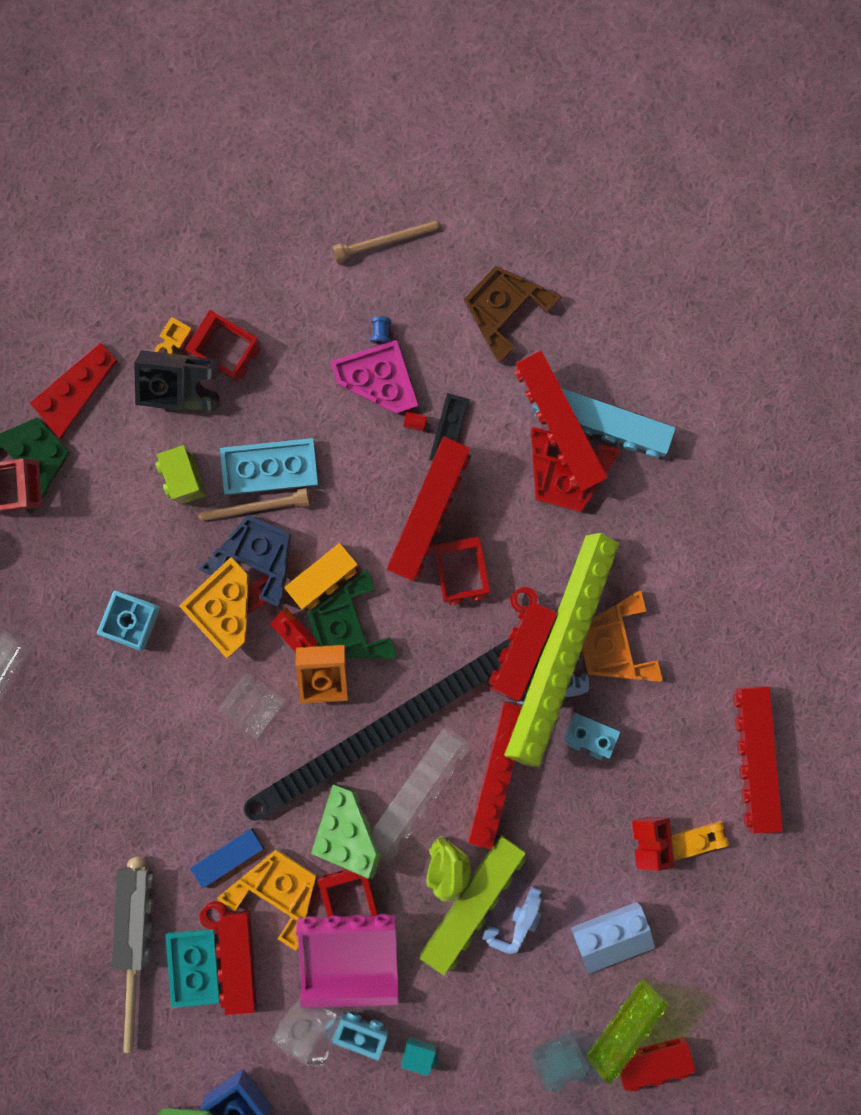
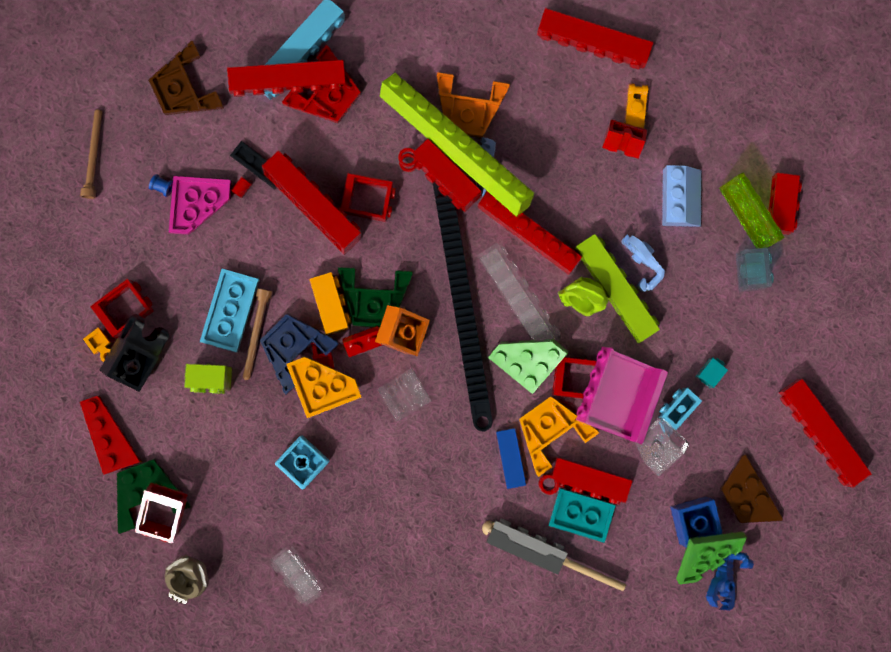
camera: 70 degrees left, 0 degrees up
(591, 736) = (528, 152): medium azure brick -> none

